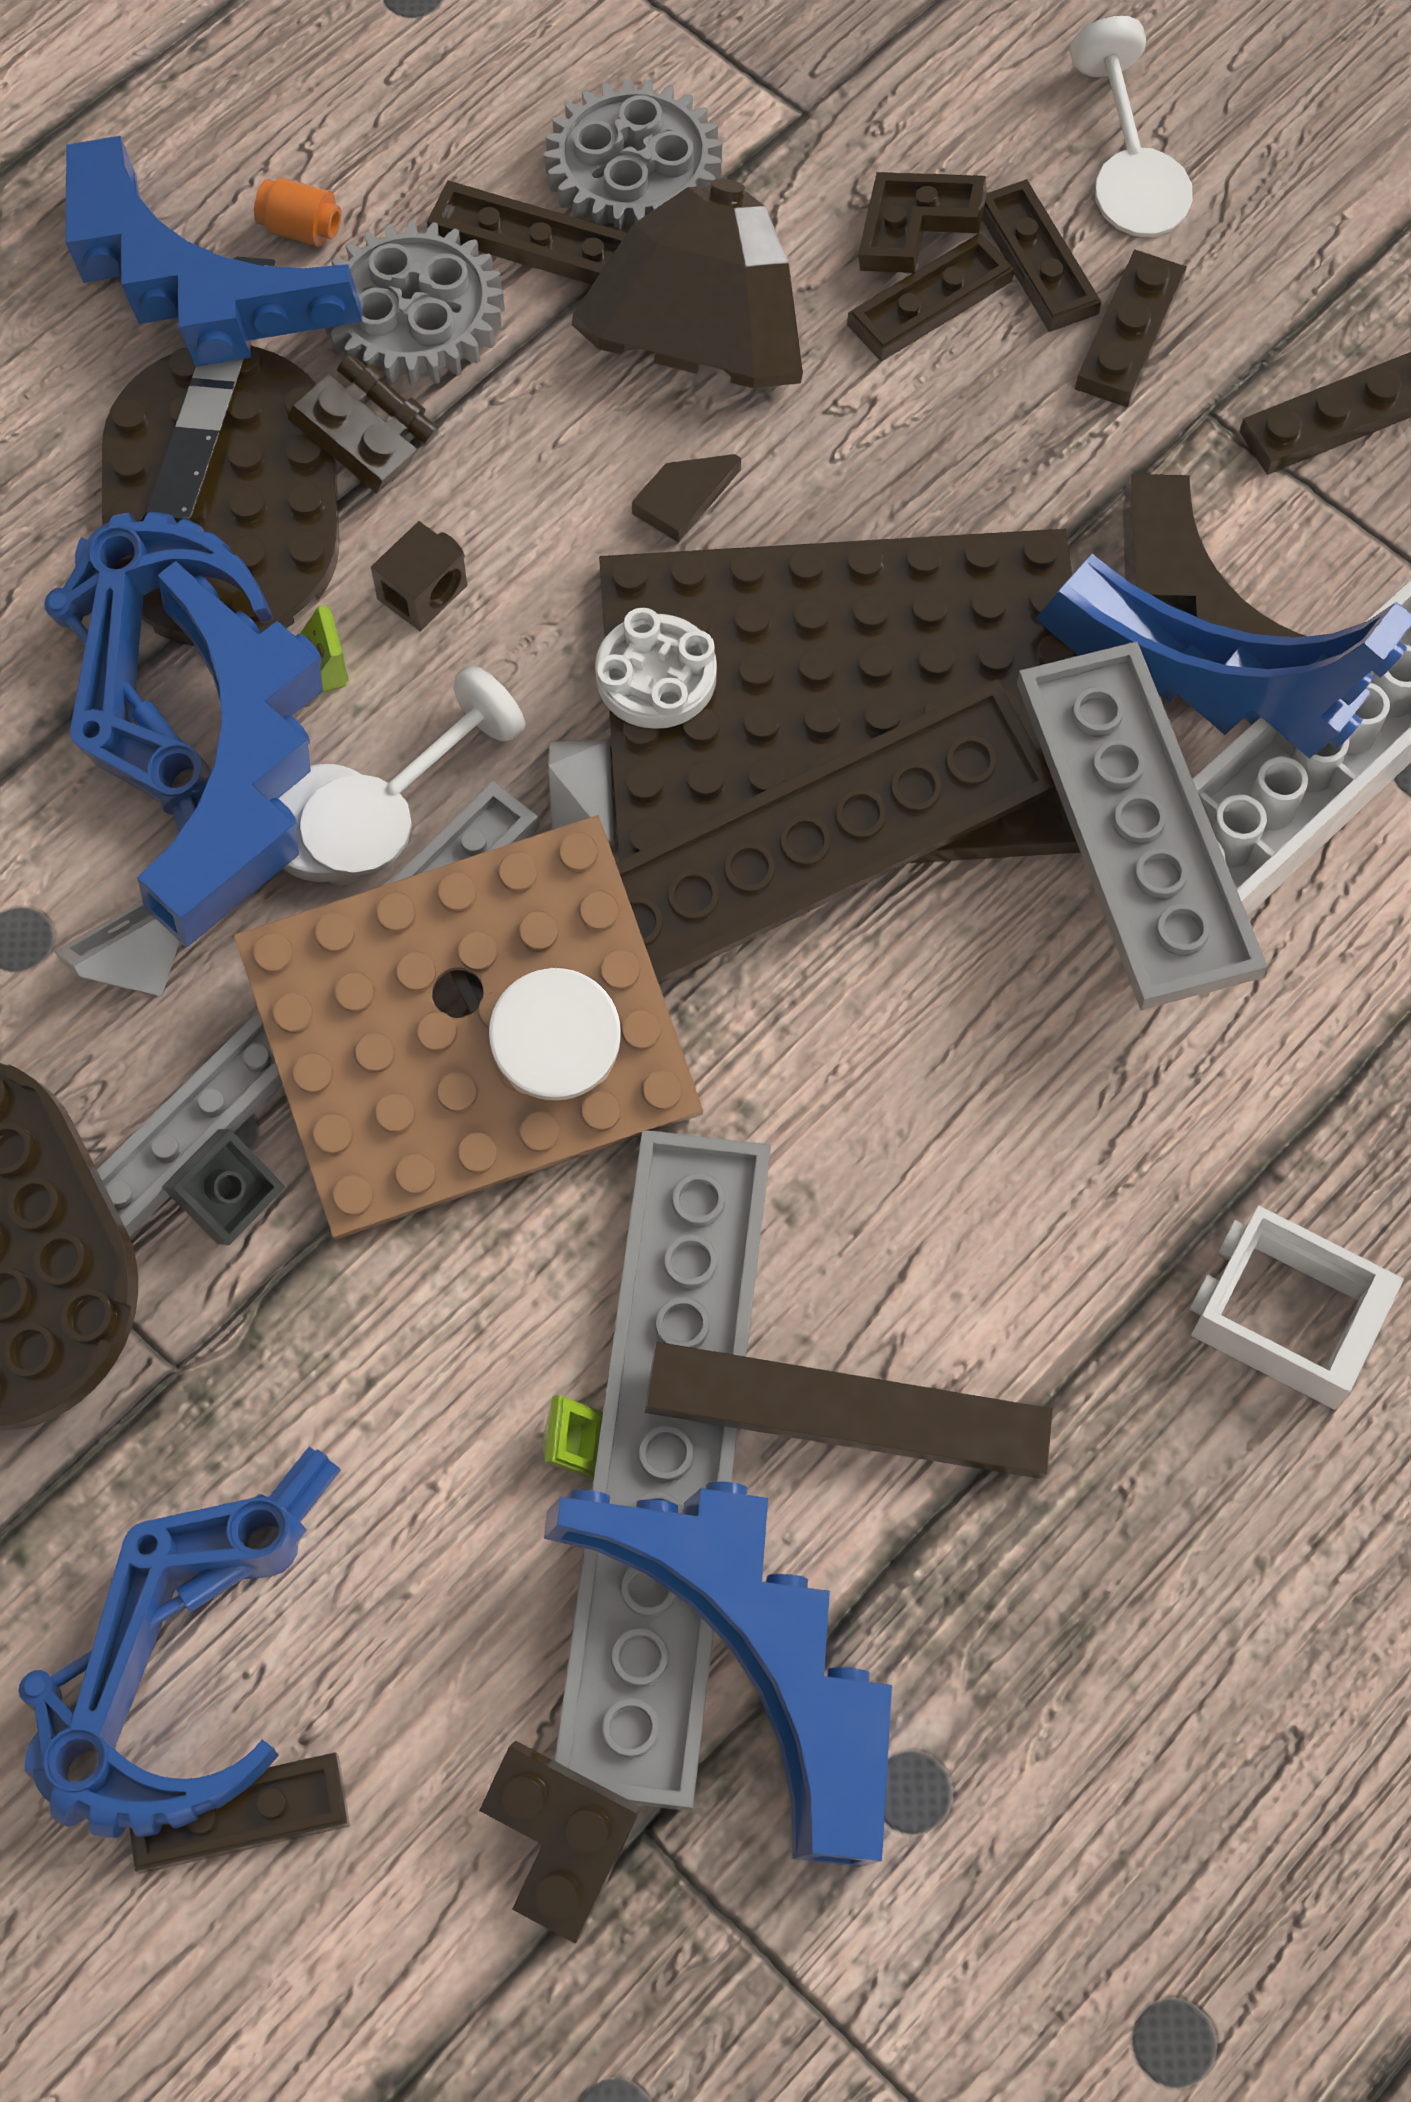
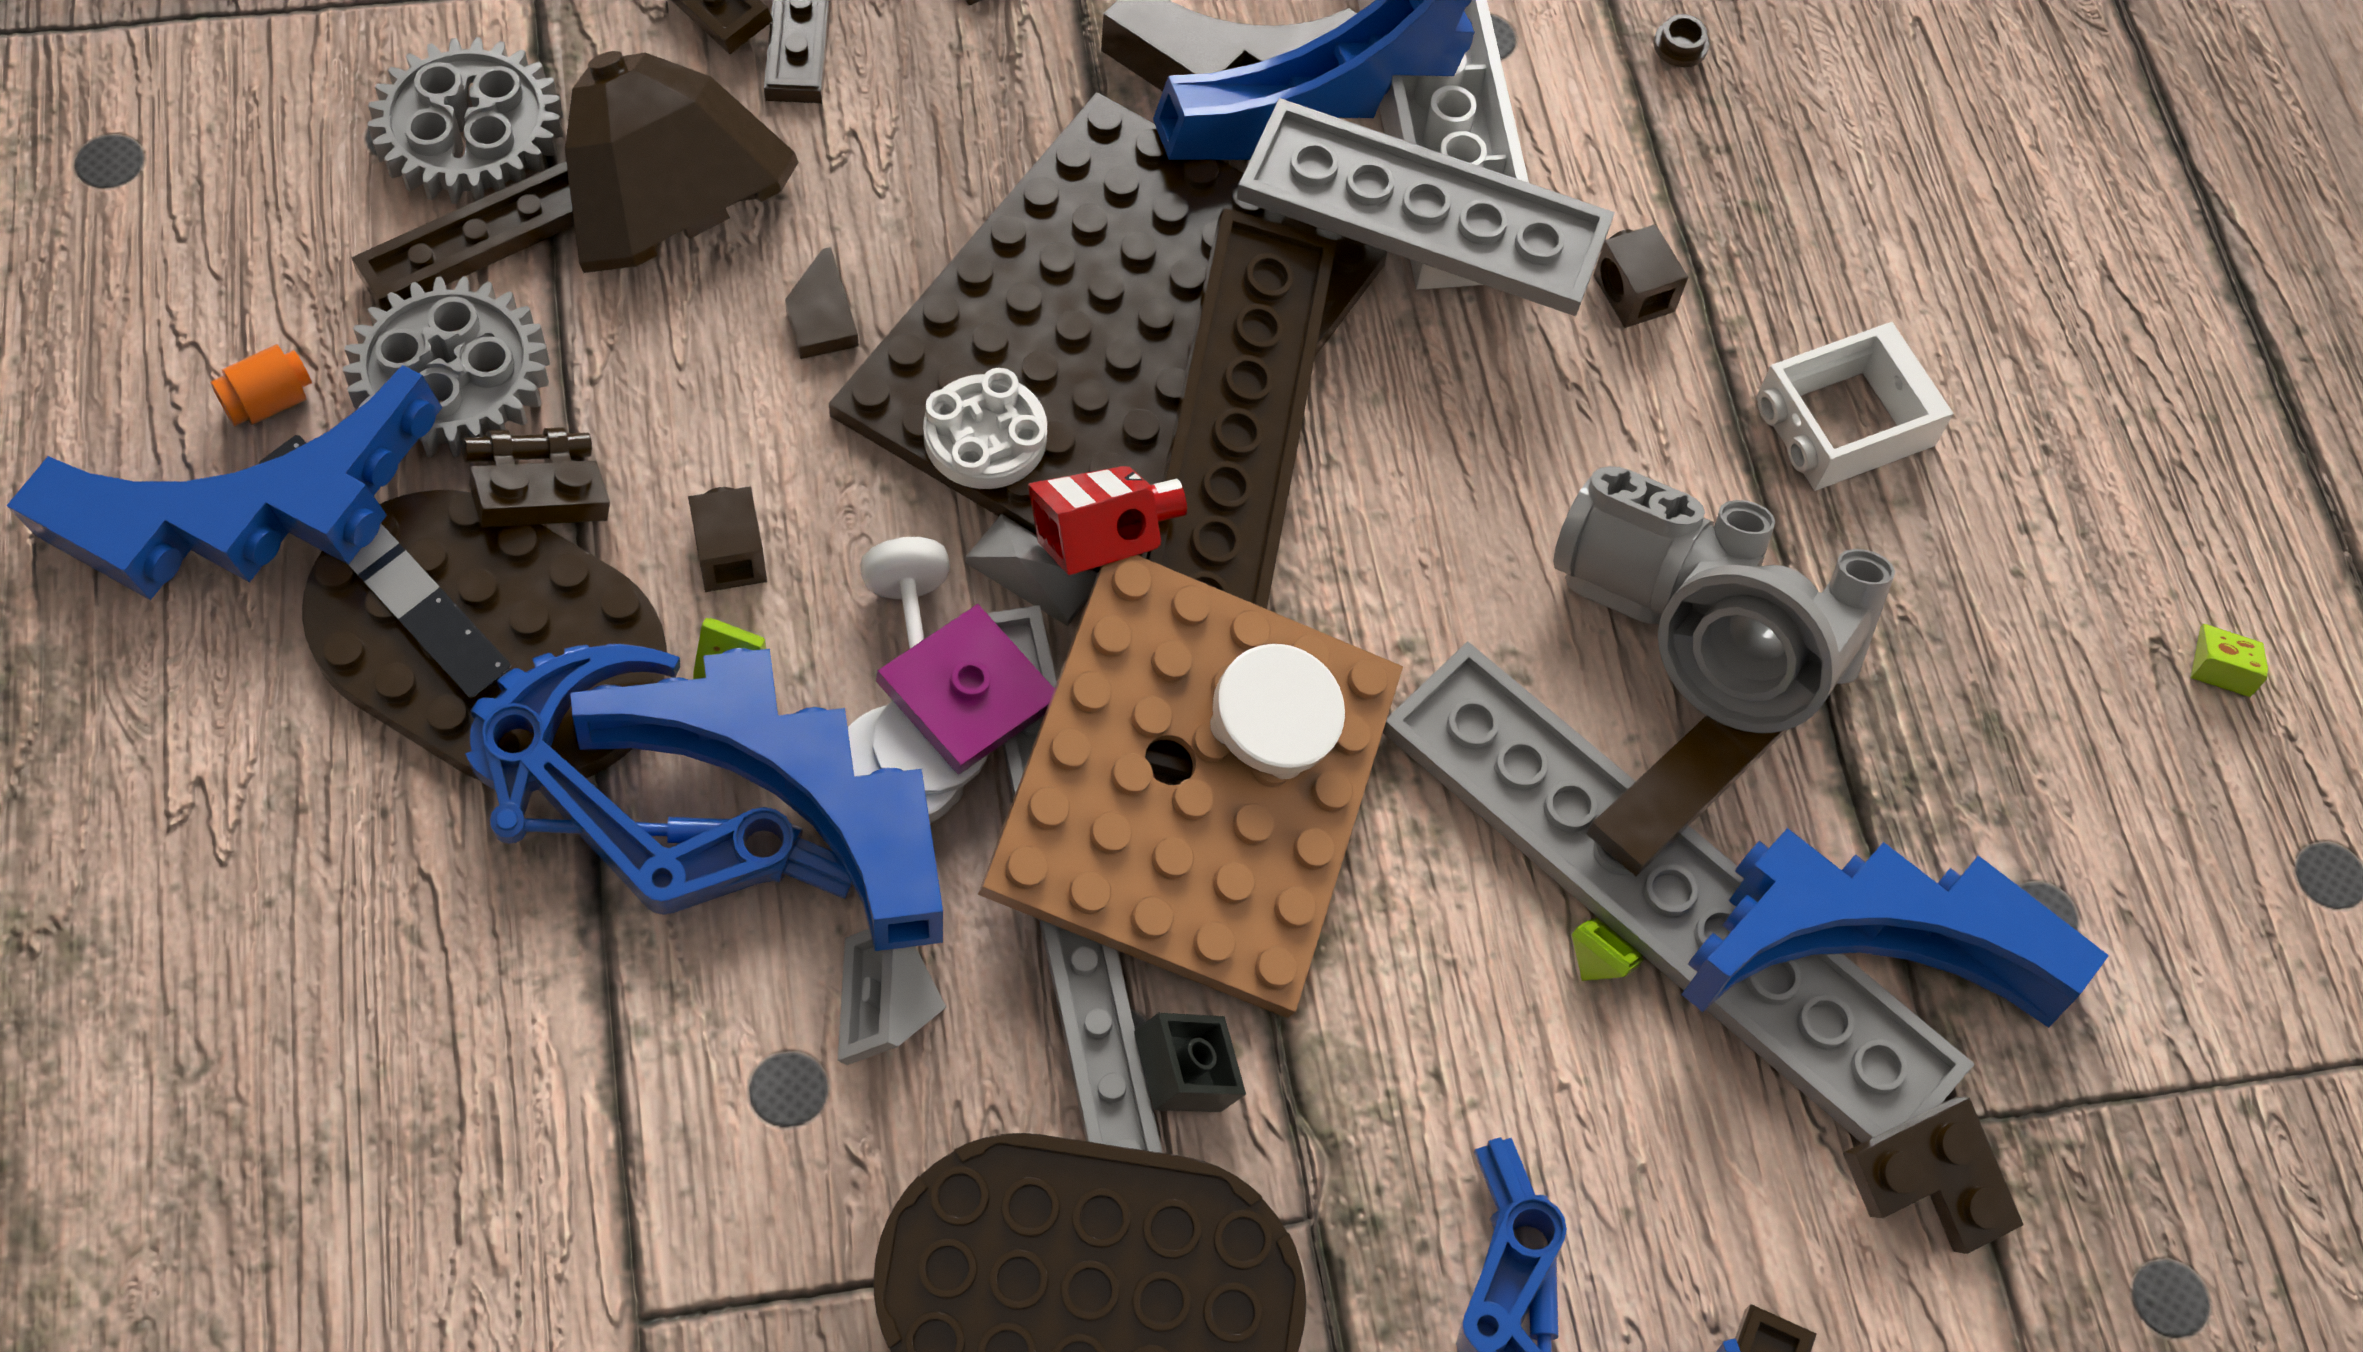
camera: 60 degrees left, 5 degrees down
(408, 811) = (967, 688): none -> magenta plate
(623, 793) = (1102, 516): none -> red torso
(942, 1318) = (1732, 634): none -> light grey piece
(1272, 1046) = (1640, 275): none -> dark brown brick
(1327, 1810) = (2229, 661): none -> lime slope

